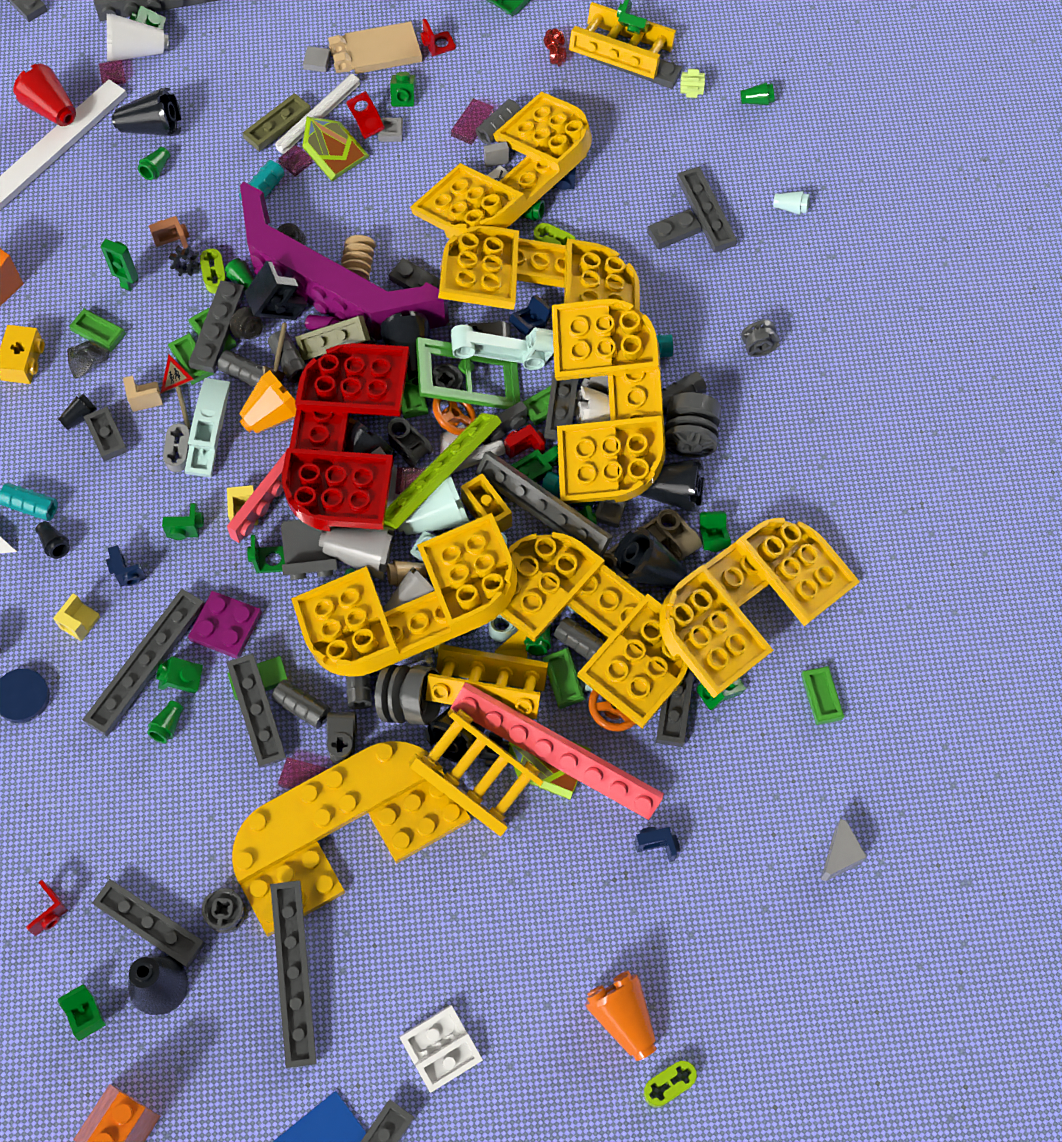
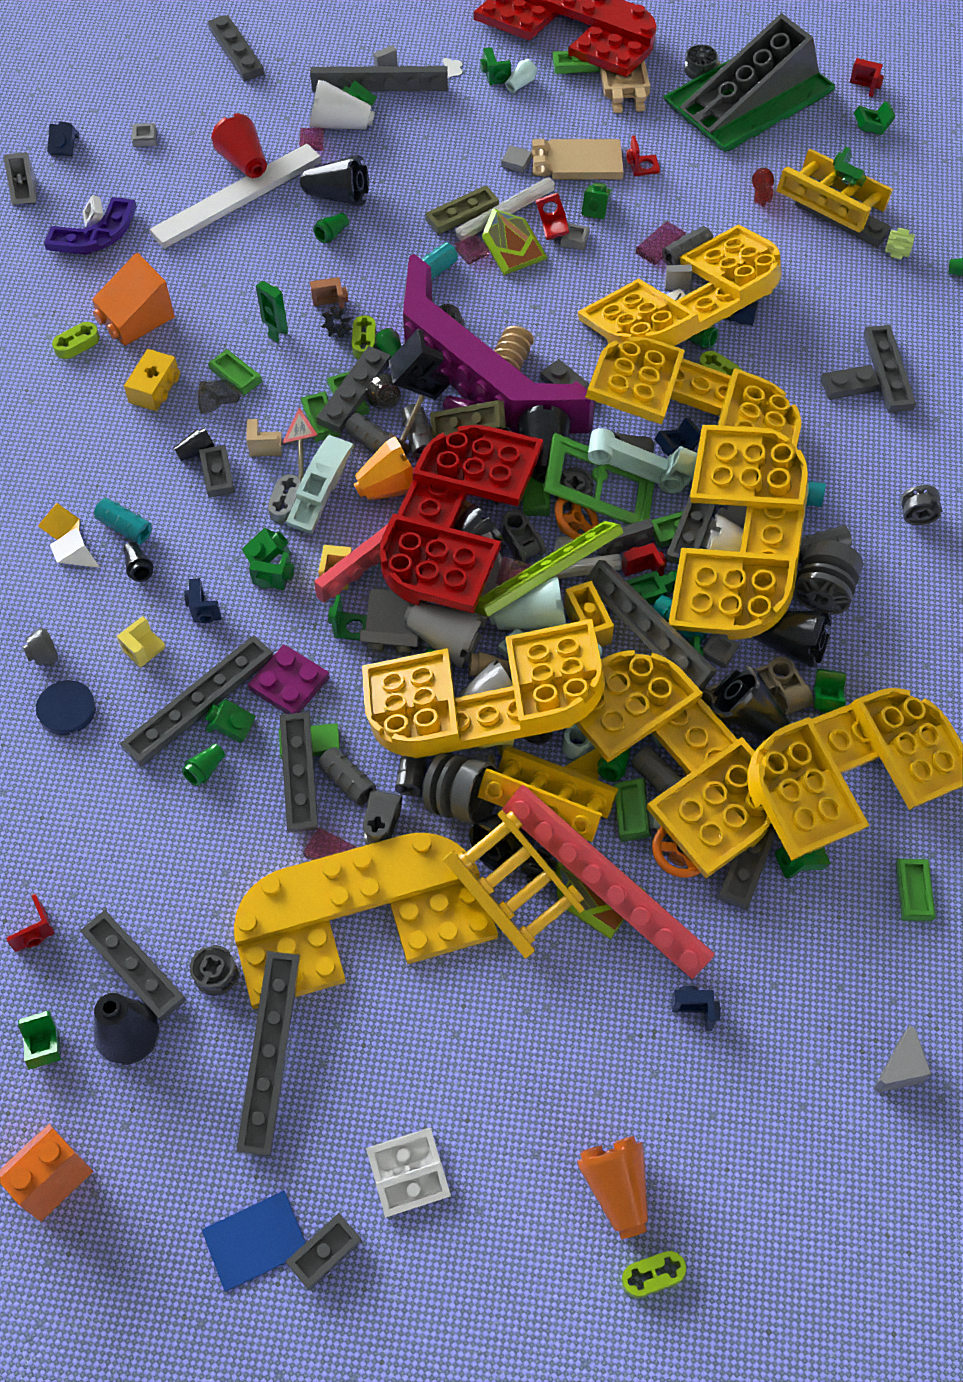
camera: 15 degrees right, 5 degrees down
(171, 500) = (266, 546): none -> green bracket

